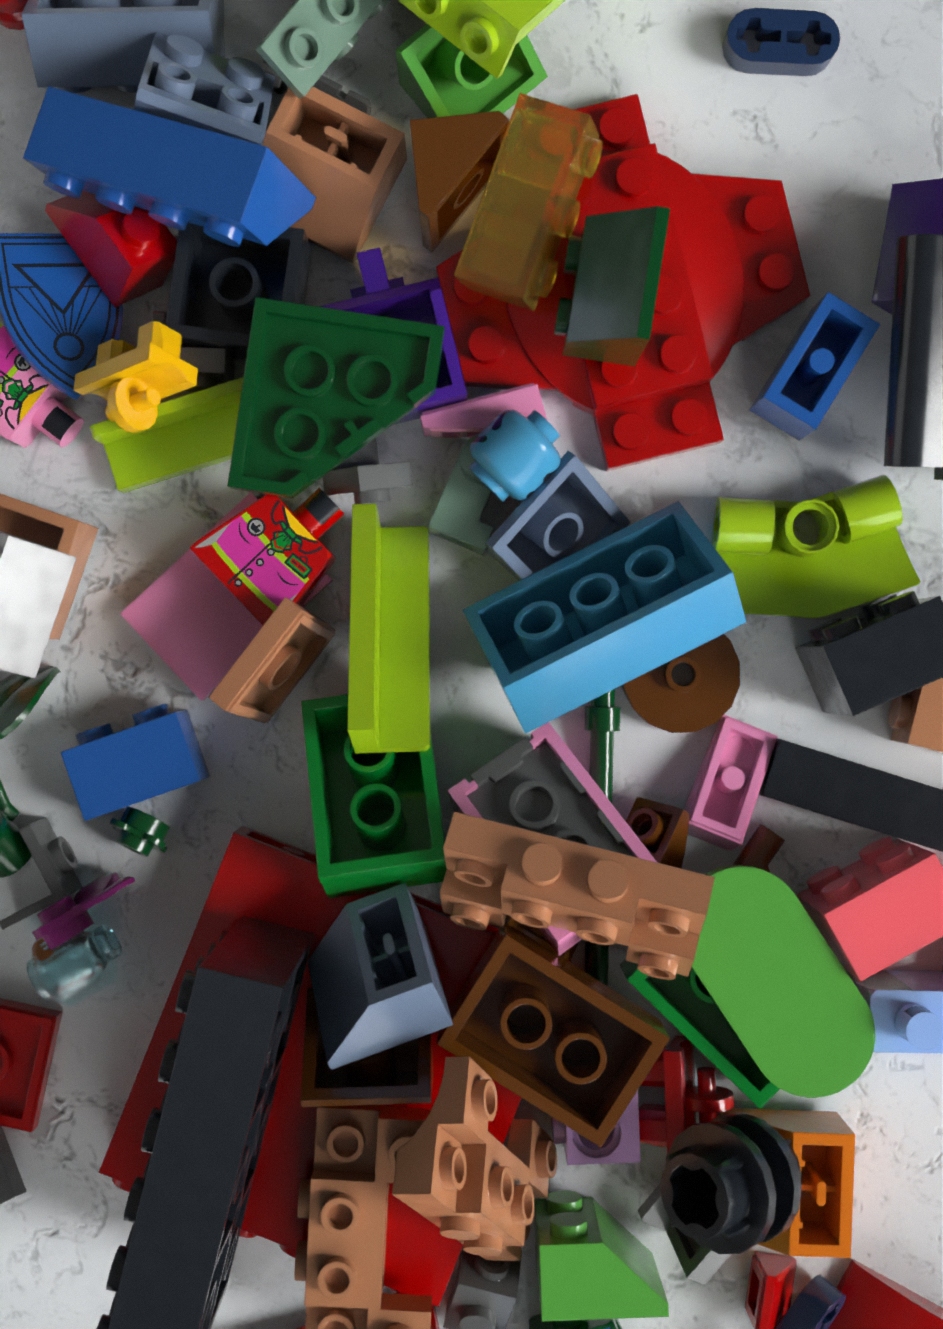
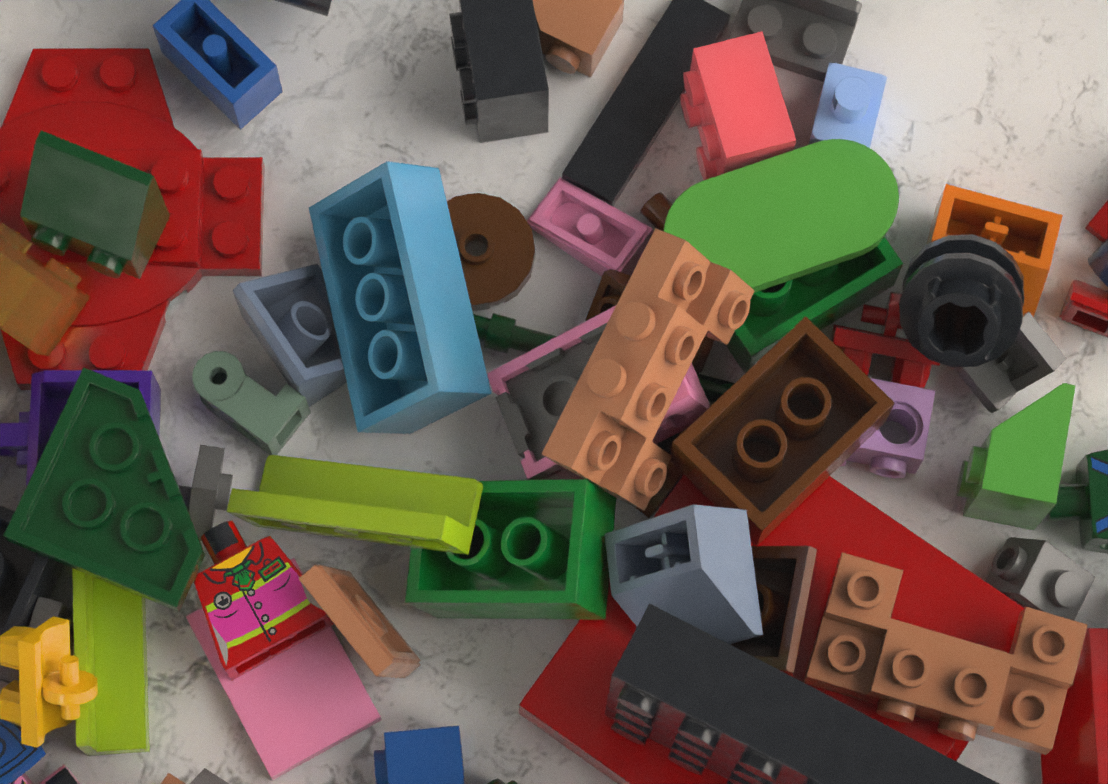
camera: 80 degrees left, 15 degrees down
(466, 1176) = (894, 527): nougat bracket -> none
(474, 415) = (180, 344): bright pink slope -> none
(515, 454) = (222, 340): dark azure head -> none
(848, 564) = (412, 74): lime panel -> none

